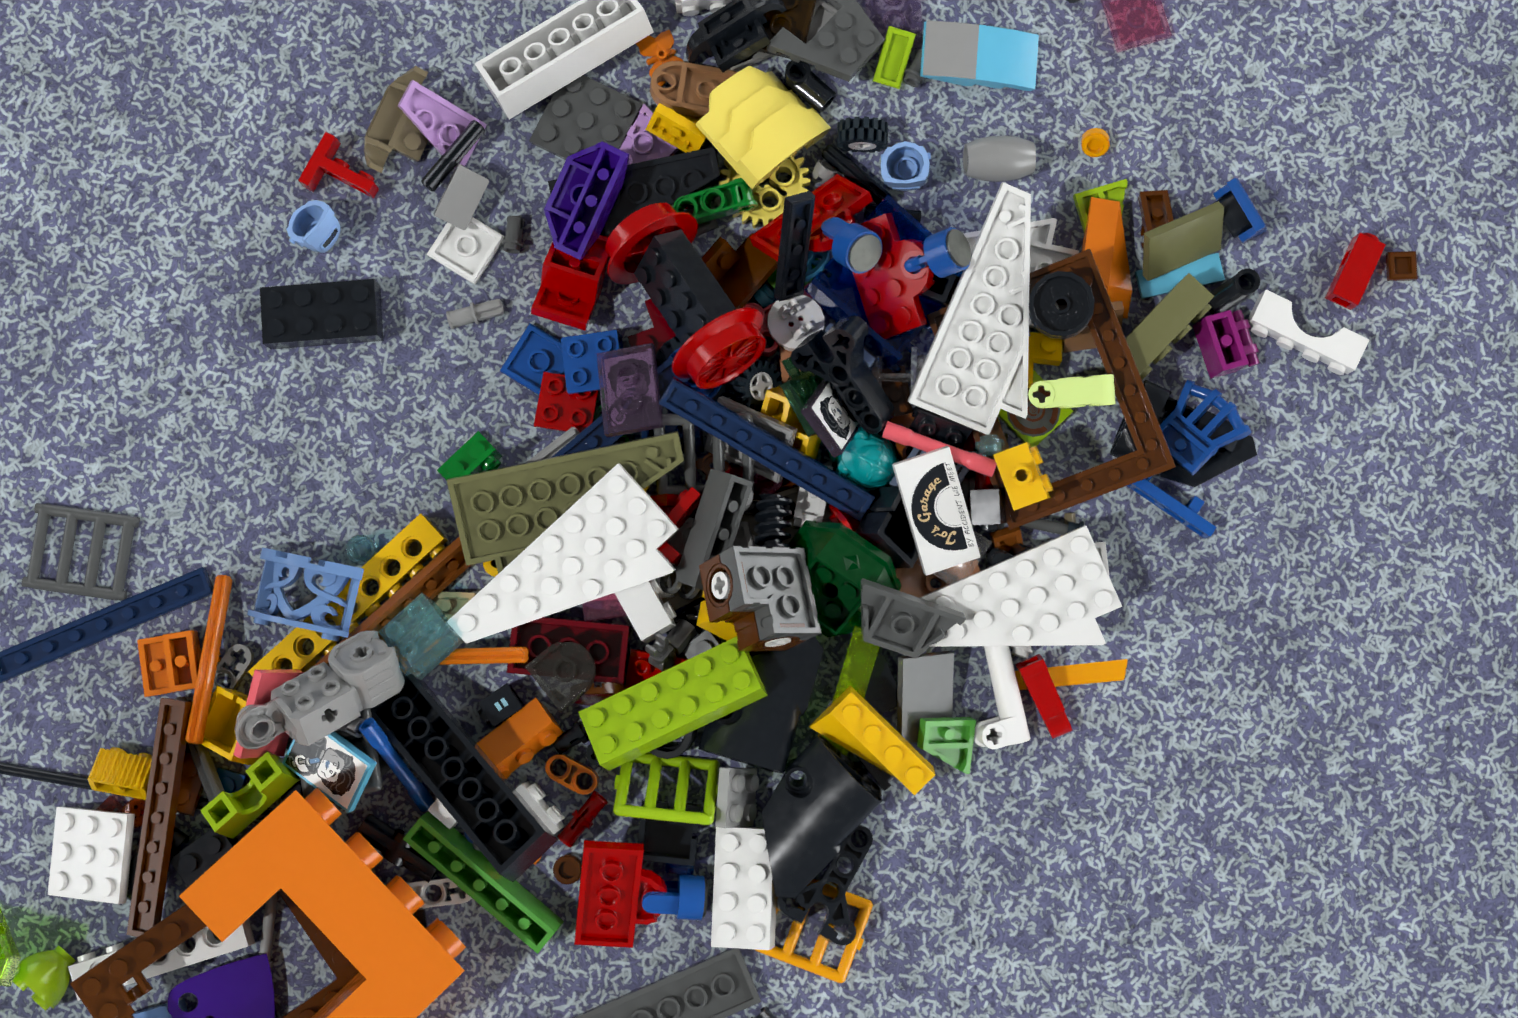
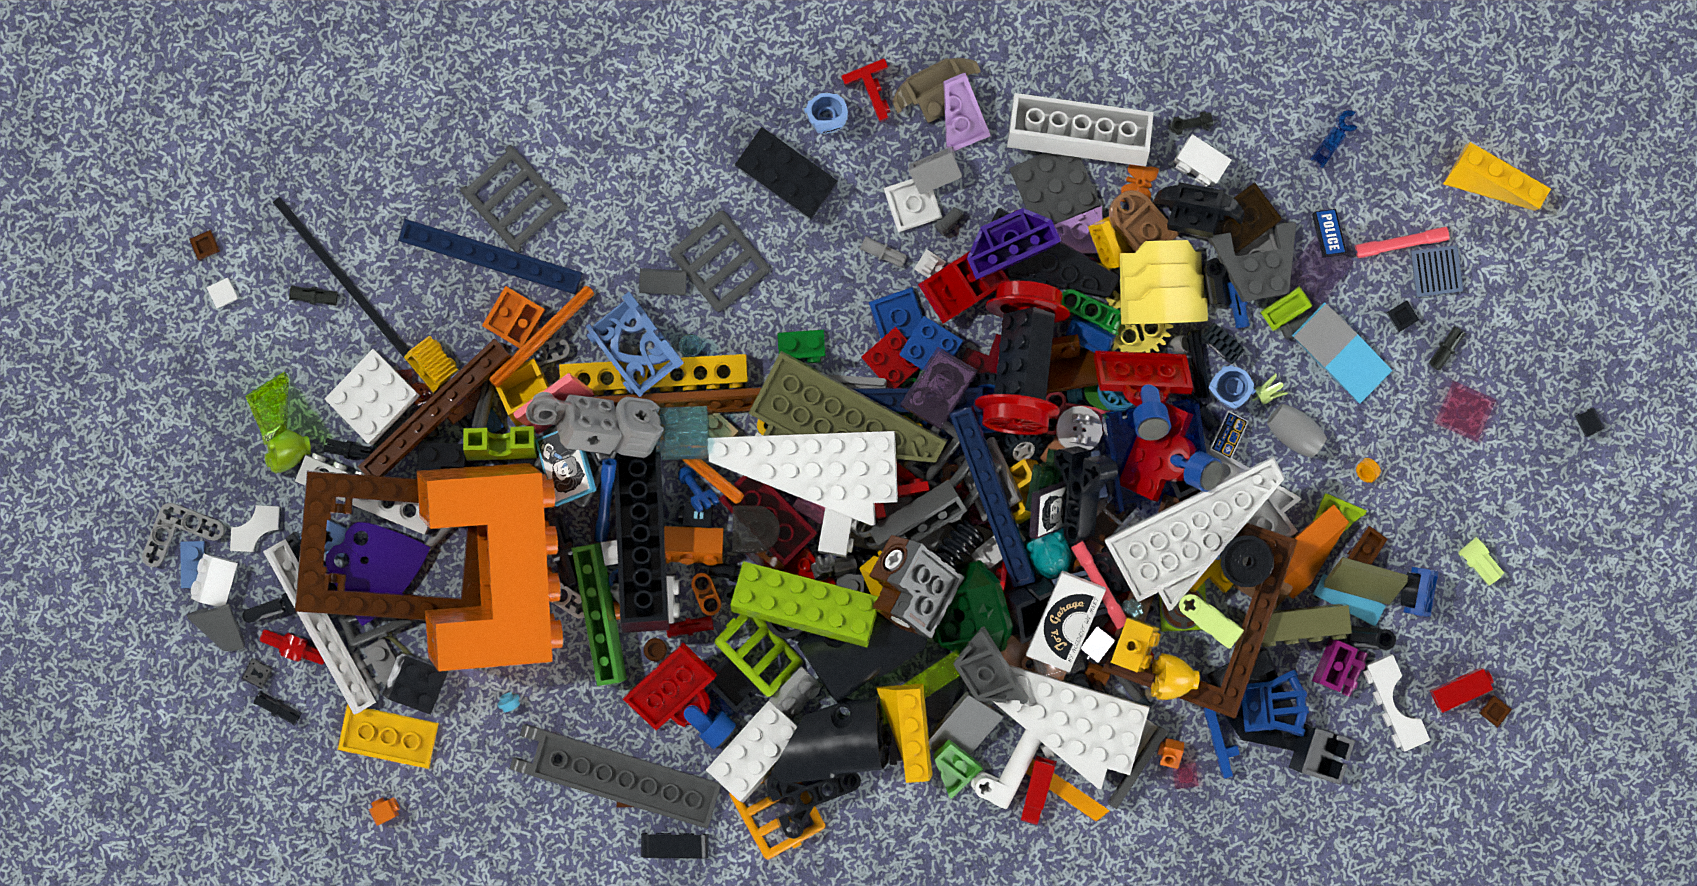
camera: 40 degrees right, 5 degrees up
(108, 925) = (347, 449): none -> black pin
(287, 512) = (662, 281): none -> dark grey tile
(306, 478) = (749, 252): none -> dark grey bar
(453, 155) = (952, 140): black axle -> none
(462, 676) = (687, 476): none -> blue hinge
(527, 288) = (929, 264): none -> white tile
(734, 229) = (1090, 335): none -> blue tile
(794, 245) = (1115, 386): black tile -> none
(860, 102) = (1240, 320): none -> blue pin
(938, 211) = (1228, 436): none -> tile
(941, 150) = (1268, 393): none -> yellowish green piece
(1083, 477) = (1172, 677): none -> yellow piece
(1122, 615) = (1138, 766): none -> dark grey tile
(1138, 555) = (1171, 752): none -> orange plate
(1169, 566) = (1185, 776): none -> clear pink plate
(1264, 138) = (1479, 558): none -> yellowish green piece
(1272, 440) = (1315, 754): none -> black piece

